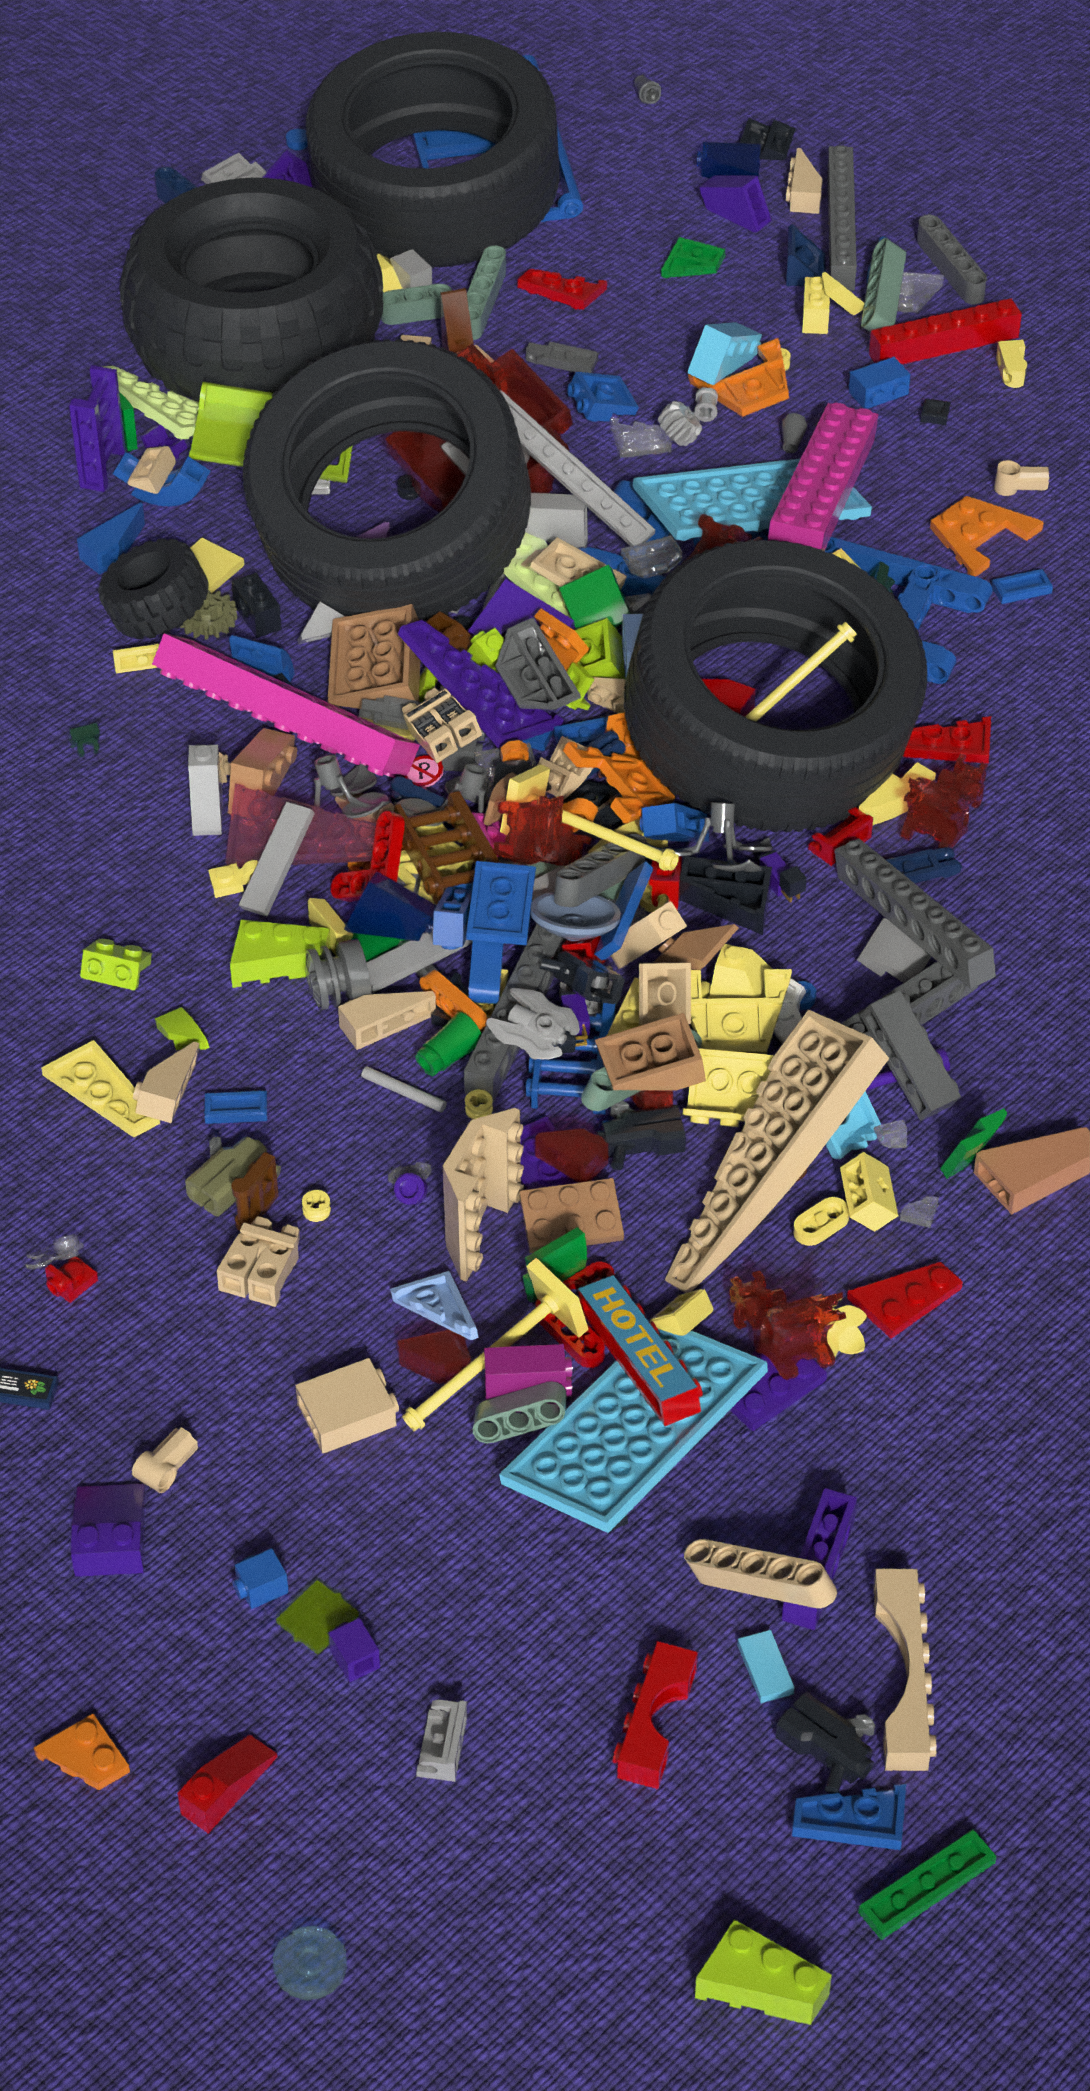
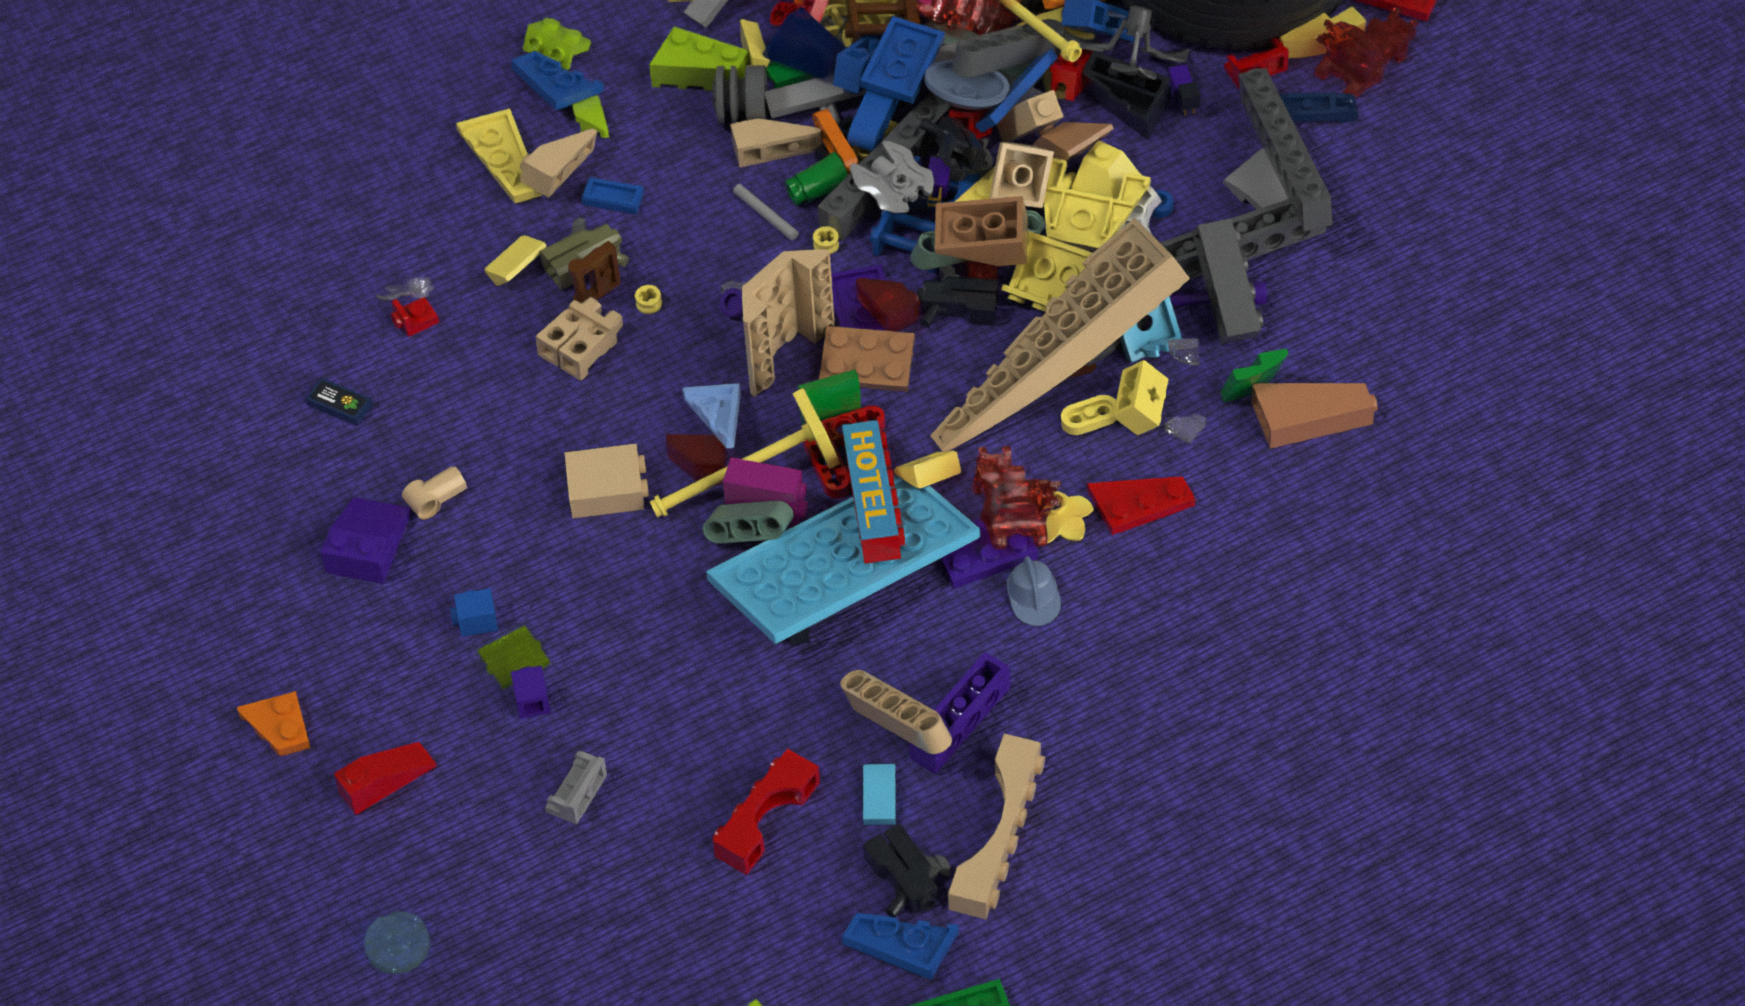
camera: 20 degrees right, 5 degrees up
(129, 1004) = (554, 83): none -> blue wing
(159, 1195) = (514, 259): none -> light yellow slope
(837, 1416) = (1033, 593): none -> sand blue piece

